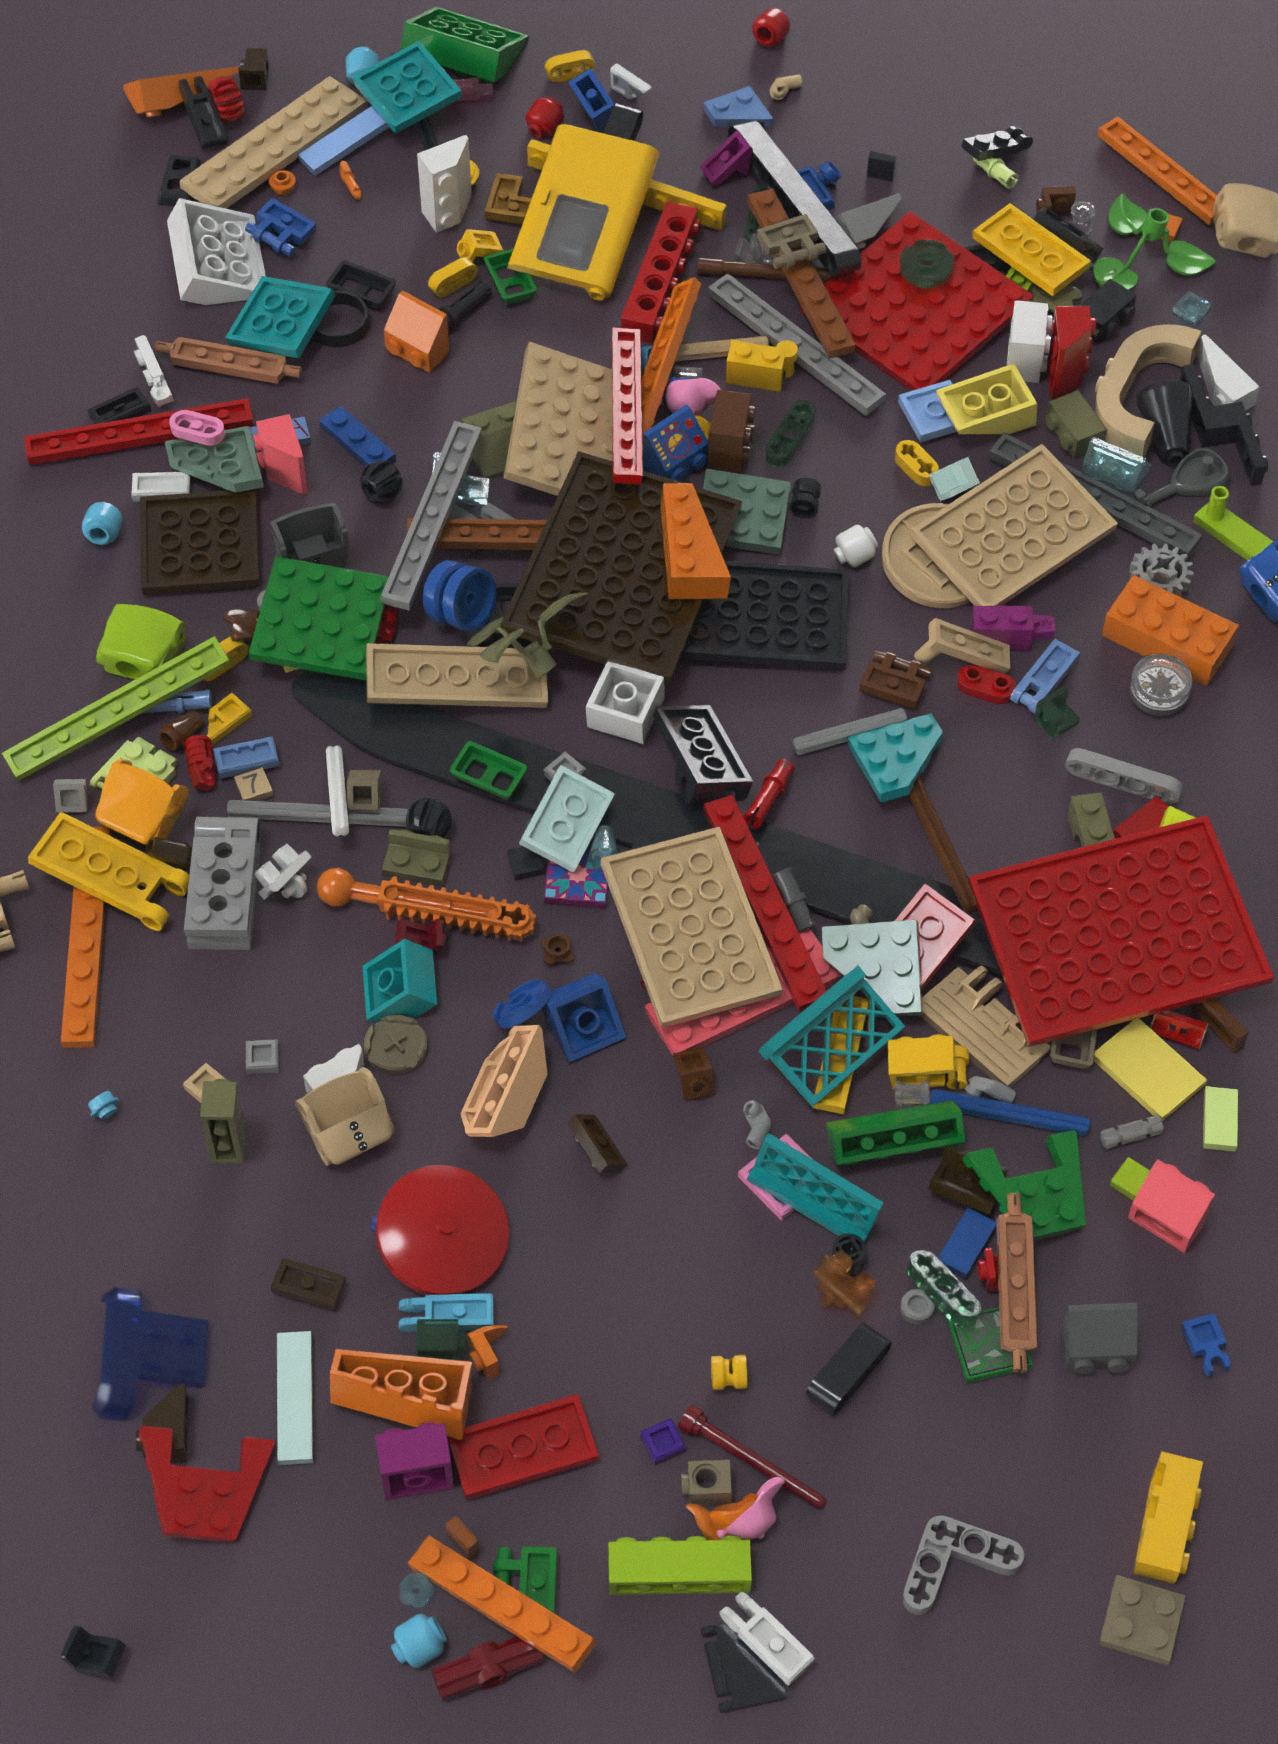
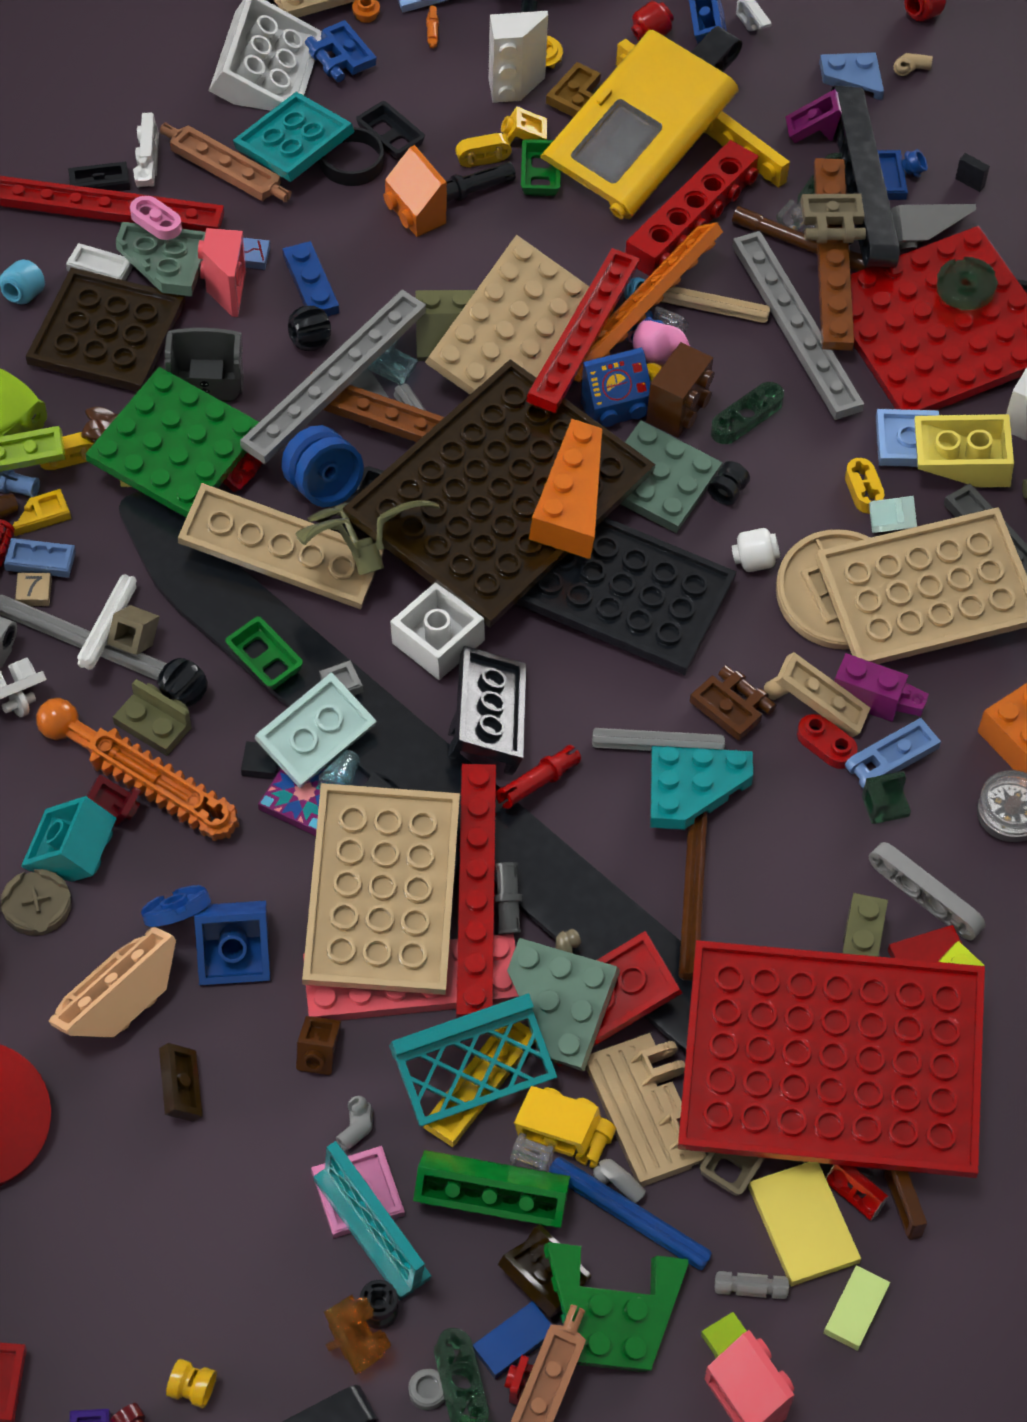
camera: 20 degrees right, 0 degrees up
(557, 941) = (246, 854): reddish brown plate -> none
(760, 364) = (748, 333): yellow hinge -> none

